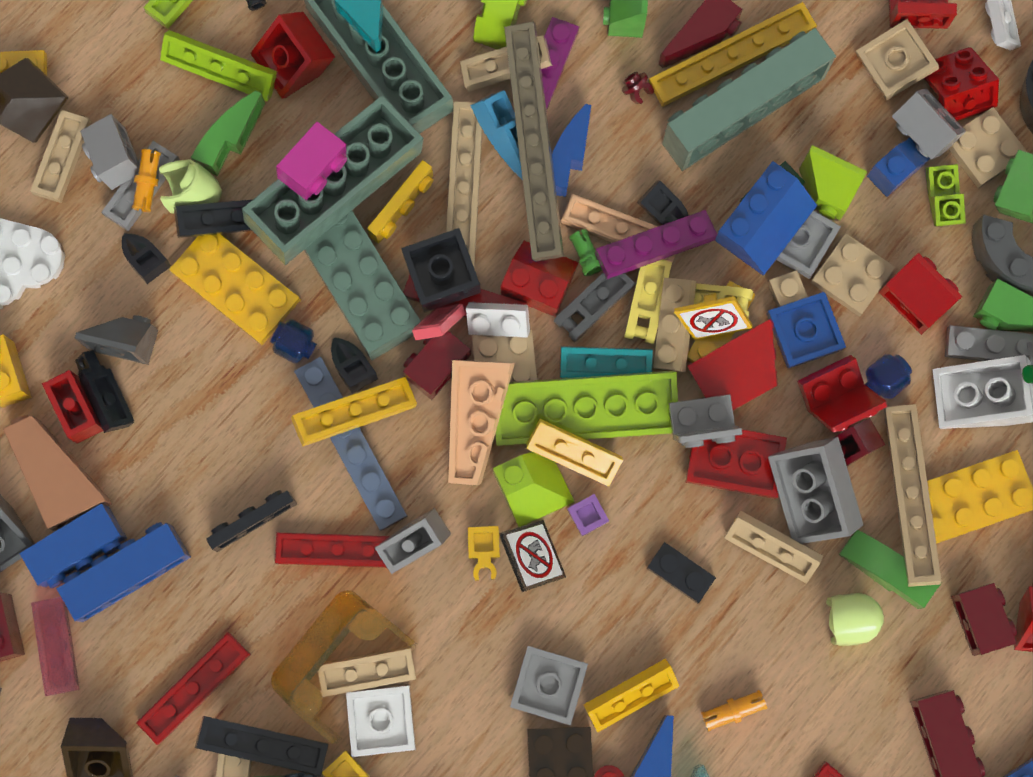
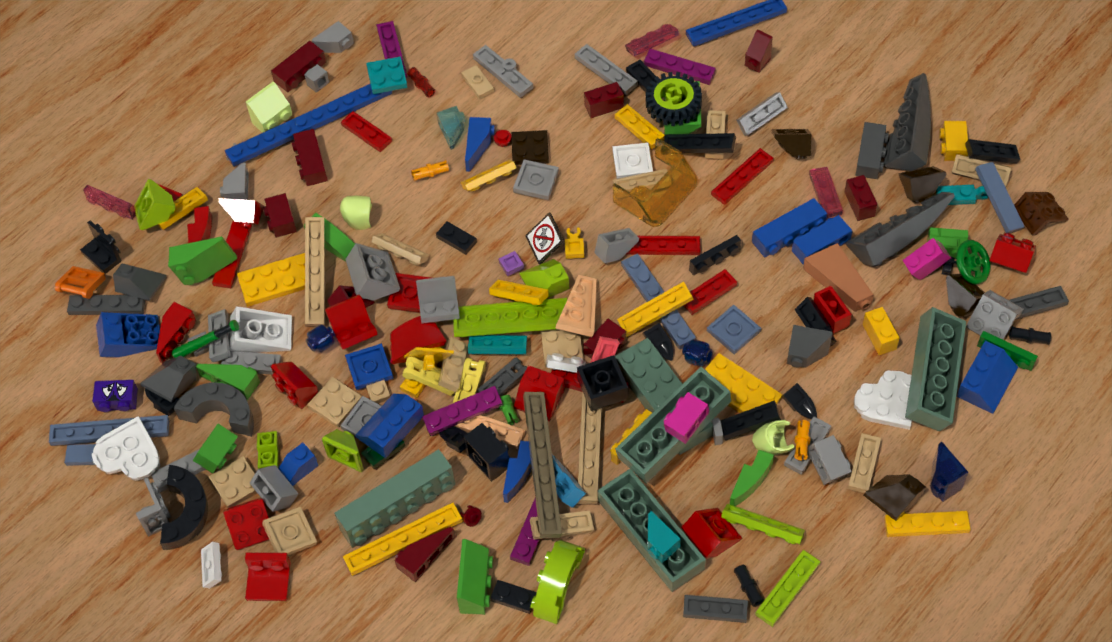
camera: 175 degrees left, 20 degrees down
(233, 389) = (733, 329): none -> sand blue tile
(263, 457) = (710, 291): none -> red plate
(616, 170) = (487, 451): none -> black brick

